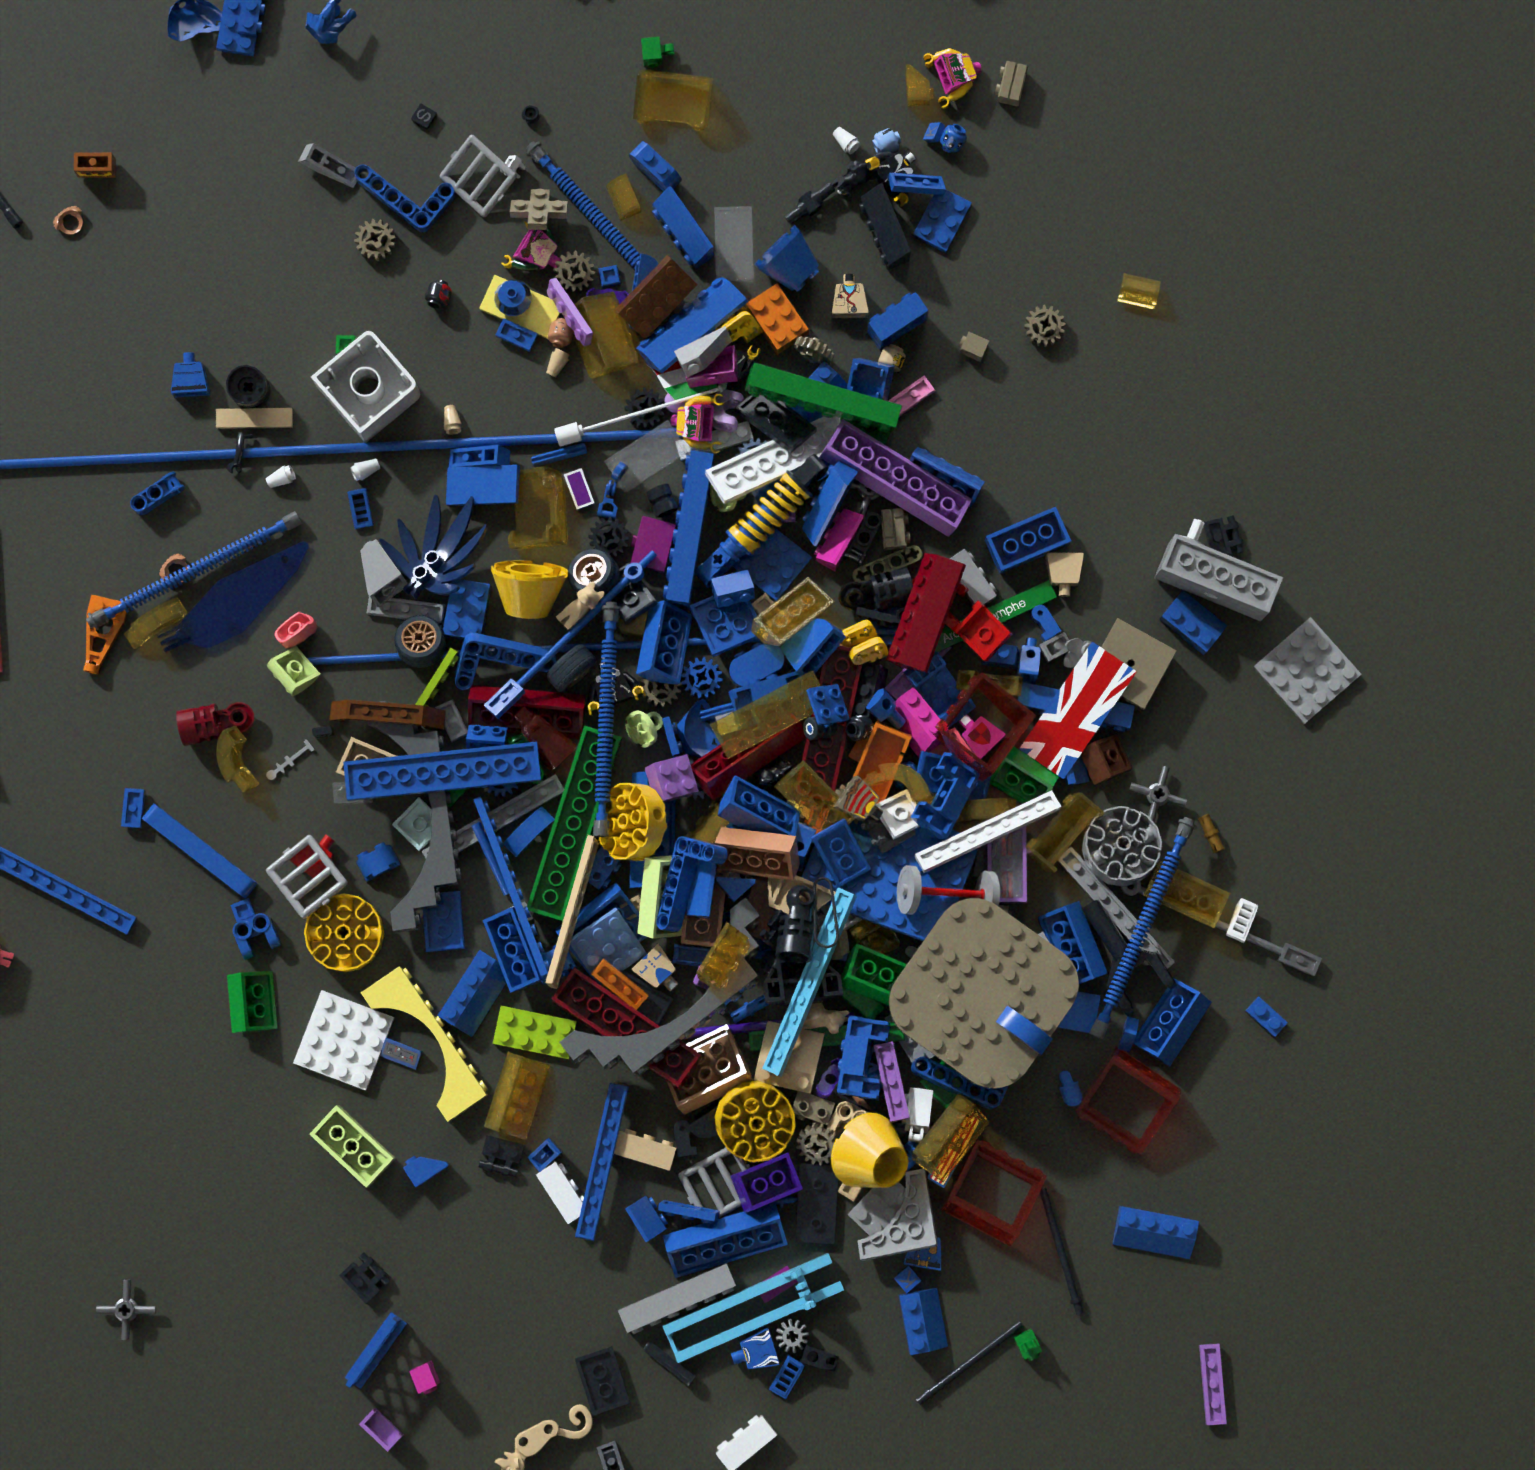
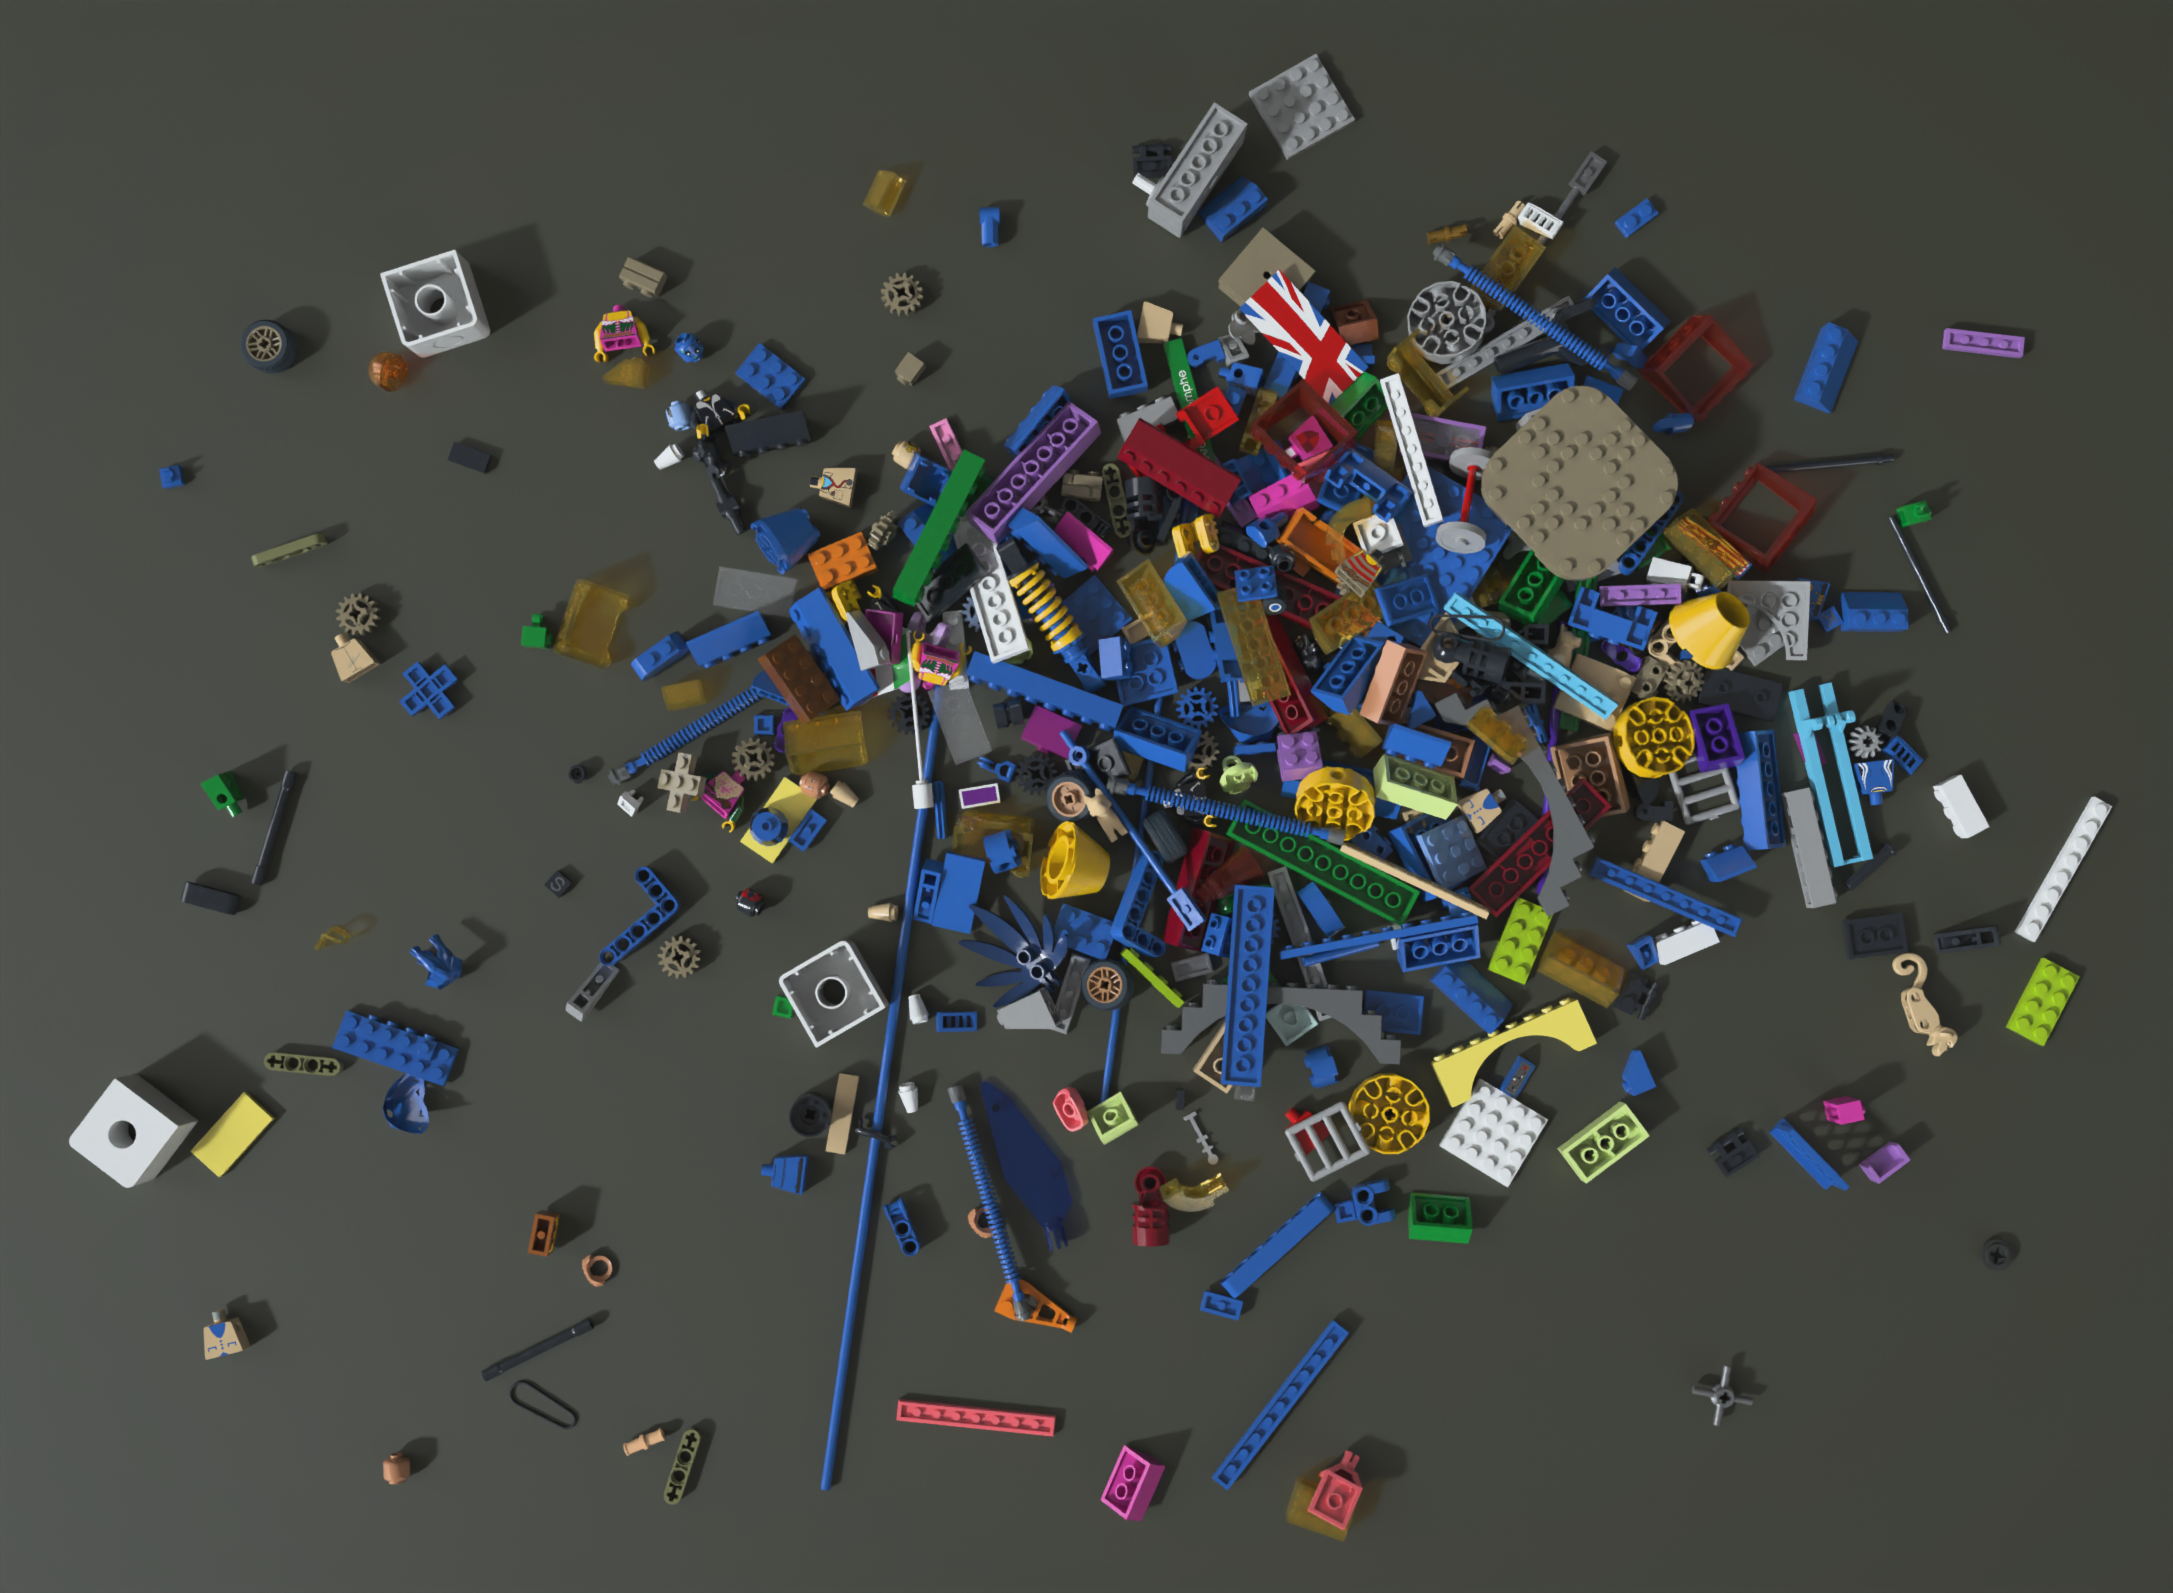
camera: 75 degrees left, 5 degrees up
(154, 621) = (1035, 1250): clear yellow arch -> none
(387, 713) = (1176, 1031): reddish brown slope -> none
(498, 165) = (627, 816): light grey bar -> none
(528, 517) = (1002, 852): none -> blue brick
(570, 312) = (796, 770): medium lavender plate -> none
(619, 471) = (971, 751): blue tile -> none
(619, 984) = (1492, 846): orange plate -> none
(681, 877) = (1403, 764): blue beam -> none
(688, 1211) = (1727, 820): blue plate -> none
(897, 320) = (868, 440): blue brick -> none
(916, 183) = (731, 392): blue plate -> none
(934, 132) = (678, 366): blue tile -> none
(1024, 1030) = (1629, 448): blue brick -> none
(1132, 394) = (989, 220): none -> blue piece
(1149, 792) = (1392, 277): flat silver bar -> none
(1237, 891) = (1509, 220): none -> tan pin

